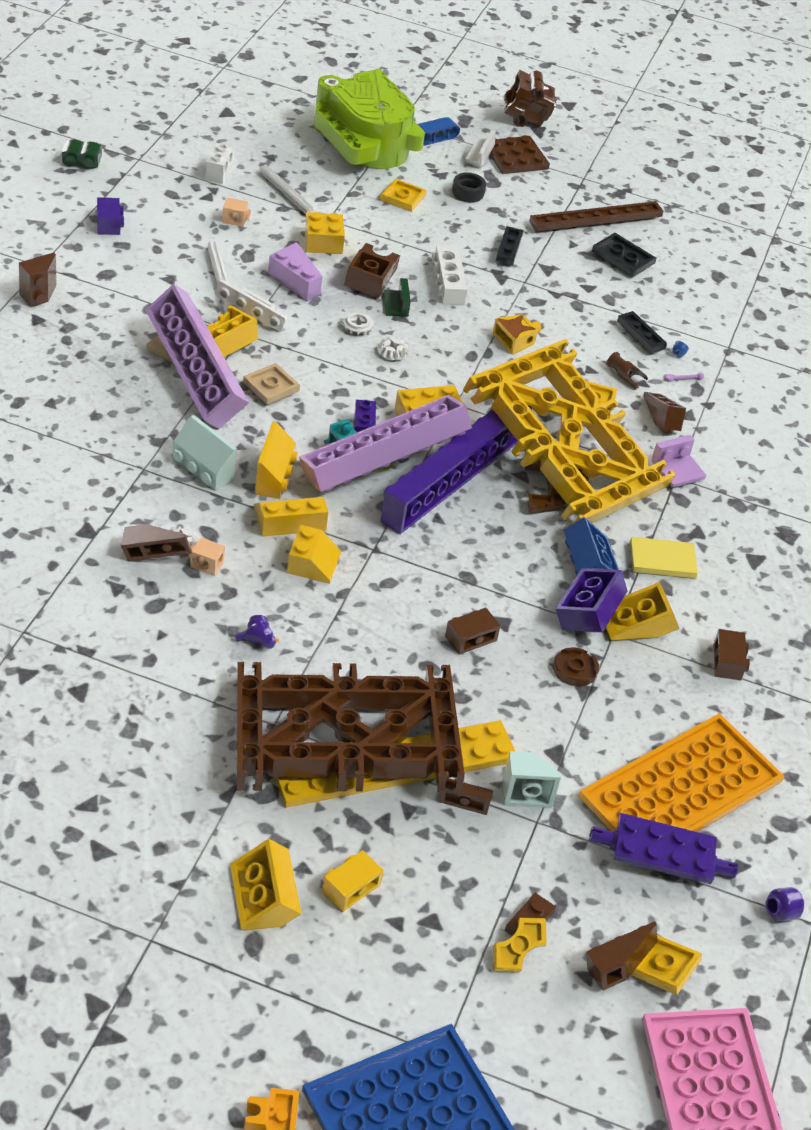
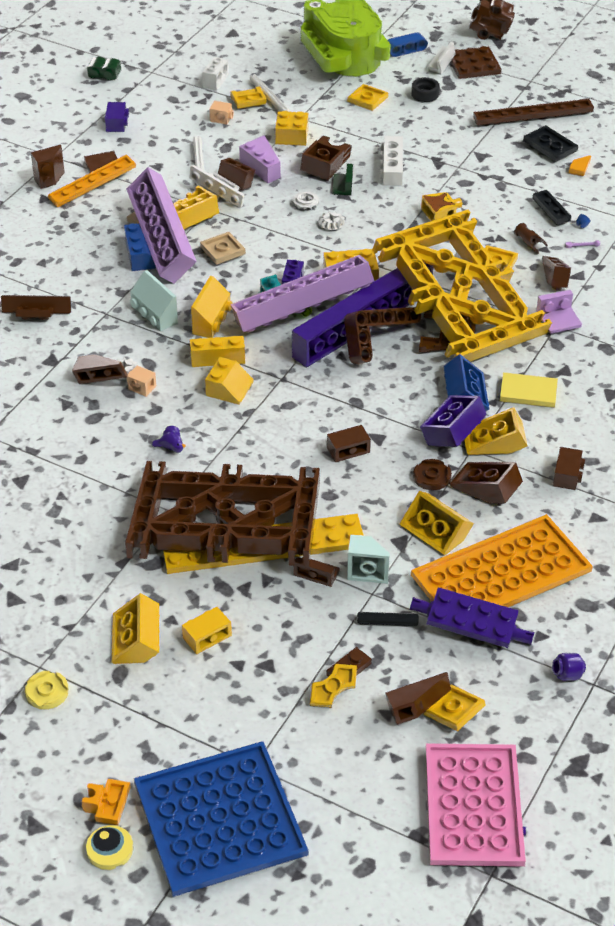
camera: 15 degrees right, 0 degrees up
(55, 460) = (35, 305): none -> reddish brown bracket
(94, 298) = (91, 181): none -> light orange tile
(103, 276) = (99, 160): none -> reddish brown tile
(167, 971) = (46, 690): none -> light yellow tile
(169, 385) = (137, 248): none -> blue slope
(263, 193) = (248, 98): none -> yellow plate
(271, 289) = (236, 173): none -> reddish brown brick
(461, 487) = (358, 331): none -> reddish brown beam
(509, 246) = (450, 137): black plate -> none
(563, 853) = (383, 618): none -> black axle
(595, 729) = (436, 523): none -> yellow slope
(643, 673) = (488, 480): none -> reddish brown slope
(661, 282) = (580, 165): none -> light orange tile

